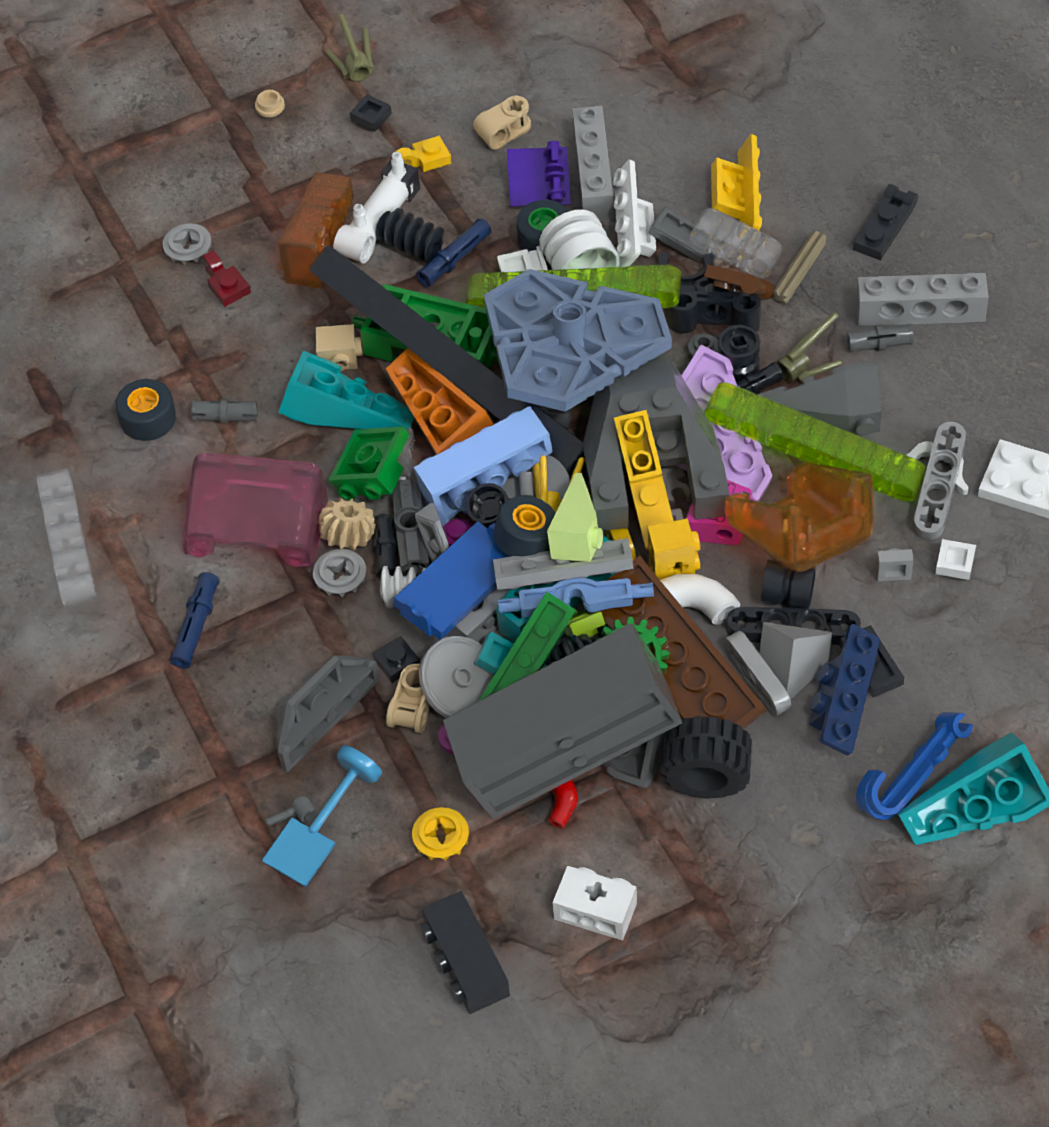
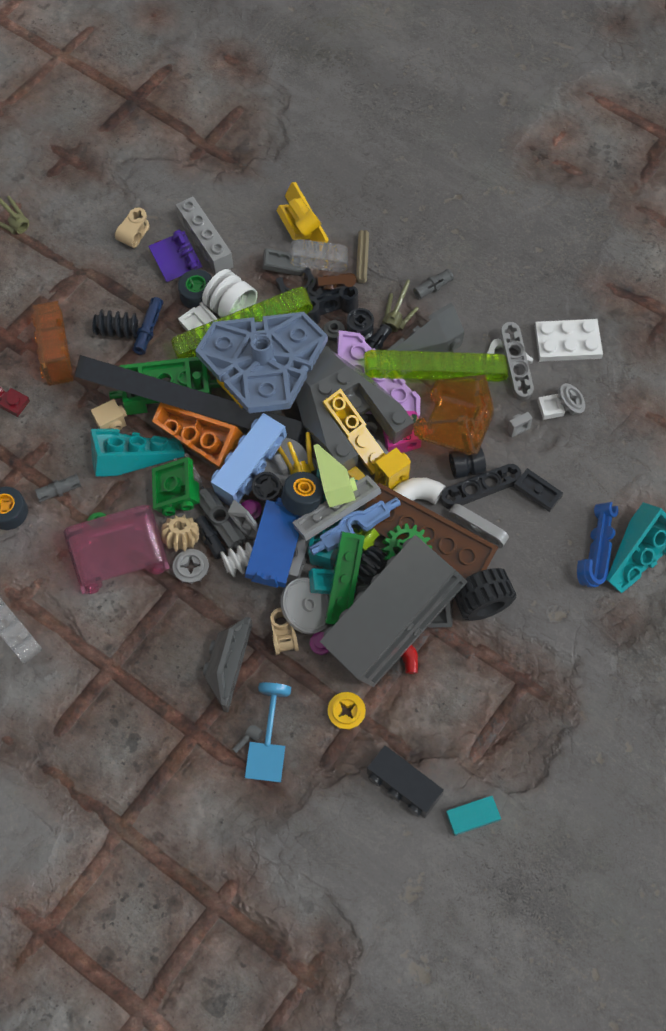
camera: 30 degrees left, 10 degrees up
(198, 607) = (114, 629): dark blue pin -> none
(370, 113) = (44, 252): black plate -> none
(394, 658) = (256, 608): black plate -> none
(398, 184) = (89, 295): white piece -> none
(426, 154) = (95, 266): yellow plate -> none
(535, 1037) = (473, 815): none -> teal tile
(595, 902) = (454, 721): white brick -> none
(633, 217) = (248, 262): white bracket -> none
(739, 183) = (305, 219): none -> yellow piece
(794, 654) = (492, 503): light grey slope -> none
(844, 690) = (534, 516): dark blue bracket -> none
(885, 222) = (396, 210): black plate -> none
(922, 299) = (446, 251): light grey brick -> none
(996, 552) = (566, 394): none -> light grey gear

